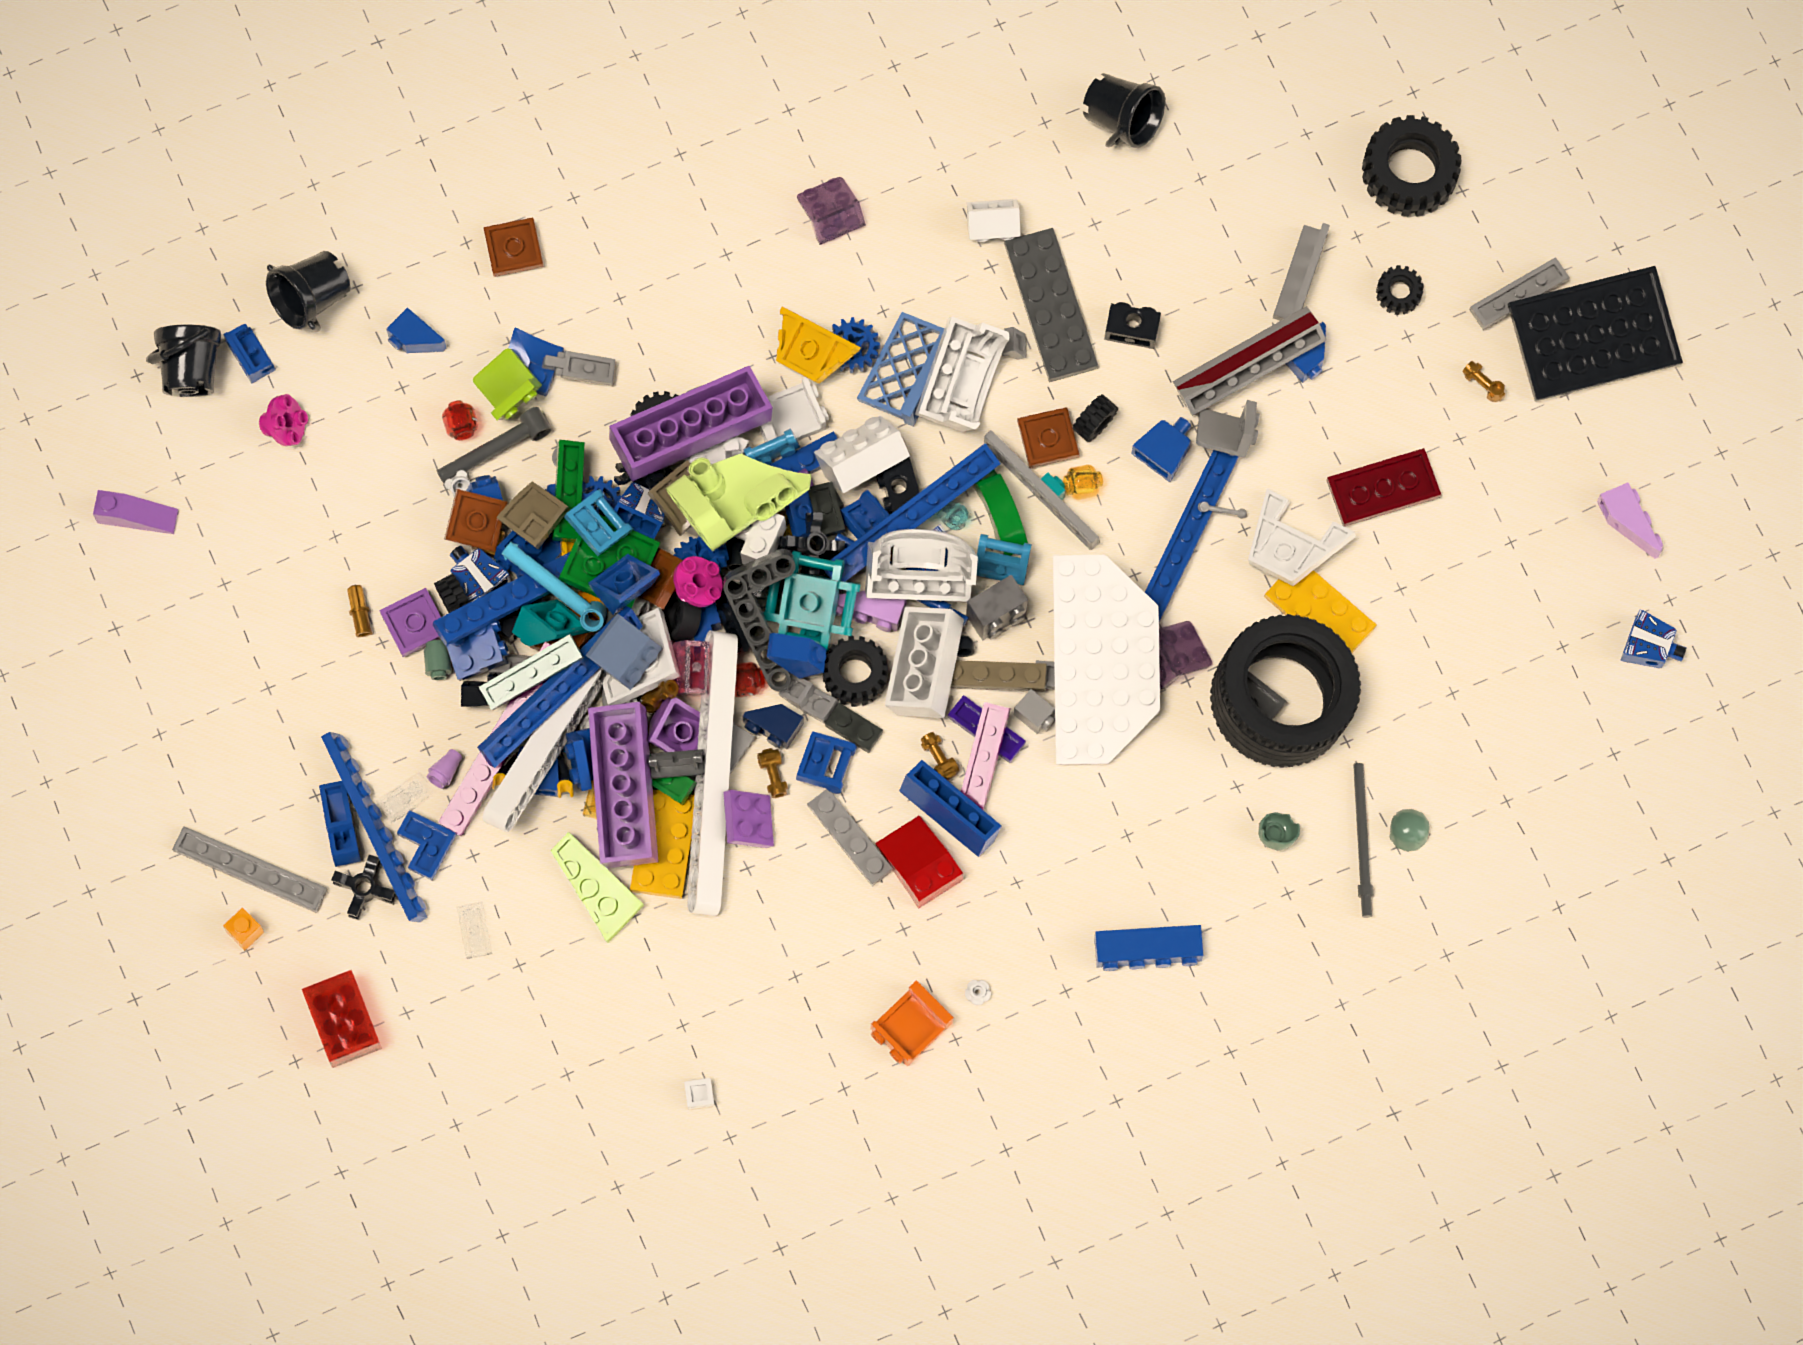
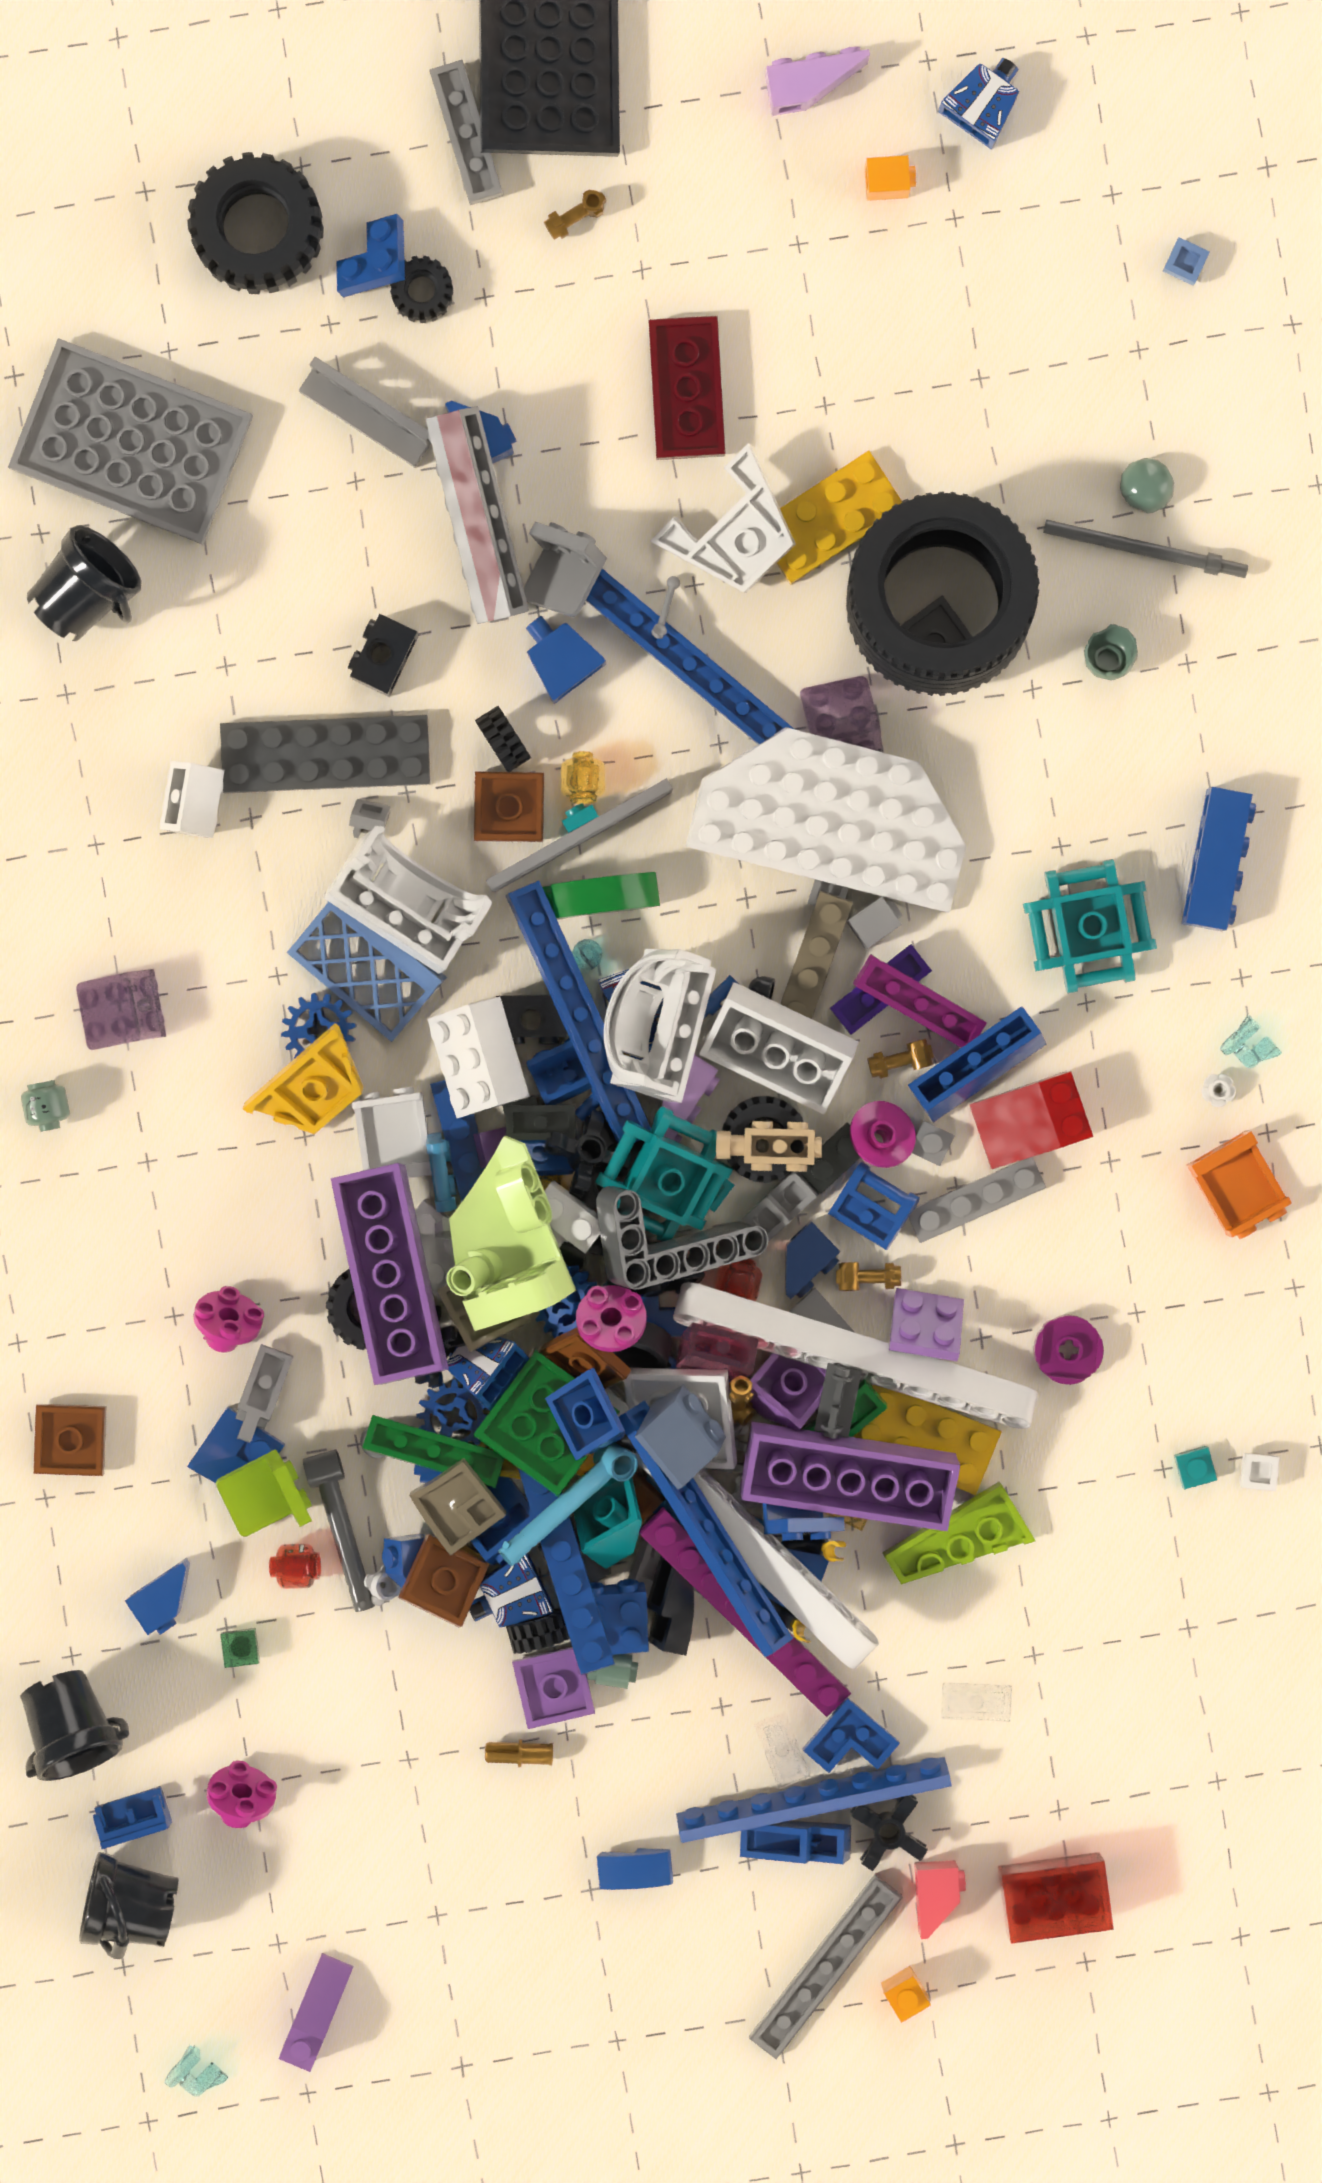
camera: 70 degrees left, 15 degrees up
(69, 452) = (210, 2077): none -> clear light blue piece
(292, 712) = (635, 1870): none -> blue slope
(323, 933) = (936, 1893): none -> coral slope
(390, 397) = (240, 1647): none -> clear green plate
(444, 769) = (758, 1692): lavender cone -> none
(531, 672) = (680, 1563): plate -> none
(593, 527) = (501, 1437): dark azure plate -> none
(627, 330) = (227, 1319): none -> dark pink plate
(690, 1047) = (1195, 1467): none -> teal plate
(742, 922) = (1080, 1365): none -> magenta plate
(749, 173) = (45, 1105): none -> sand green head
(796, 654) = (733, 1212): blue slope -> none
(856, 673) = (779, 1146): none -> tan brick
(883, 794) = (932, 1143): none -> light grey plate
(891, 754) = (892, 1125): none -> dark pink dish
(997, 608) = (730, 934): flat silver brick -> none
(998, 565) = (664, 911): dark azure plate -> none
(1007, 1010) = (1249, 1057): none -> clear light blue piece
(1074, 866) = (1090, 926): none -> teal brick
(1234, 121) = (130, 441): none -> light grey plate
(1410, 256) = (380, 264): none -> blue plate
(1576, 589) = (889, 177): none -> light orange brick
(1580, 815) = (1186, 261): none -> medium blue plate

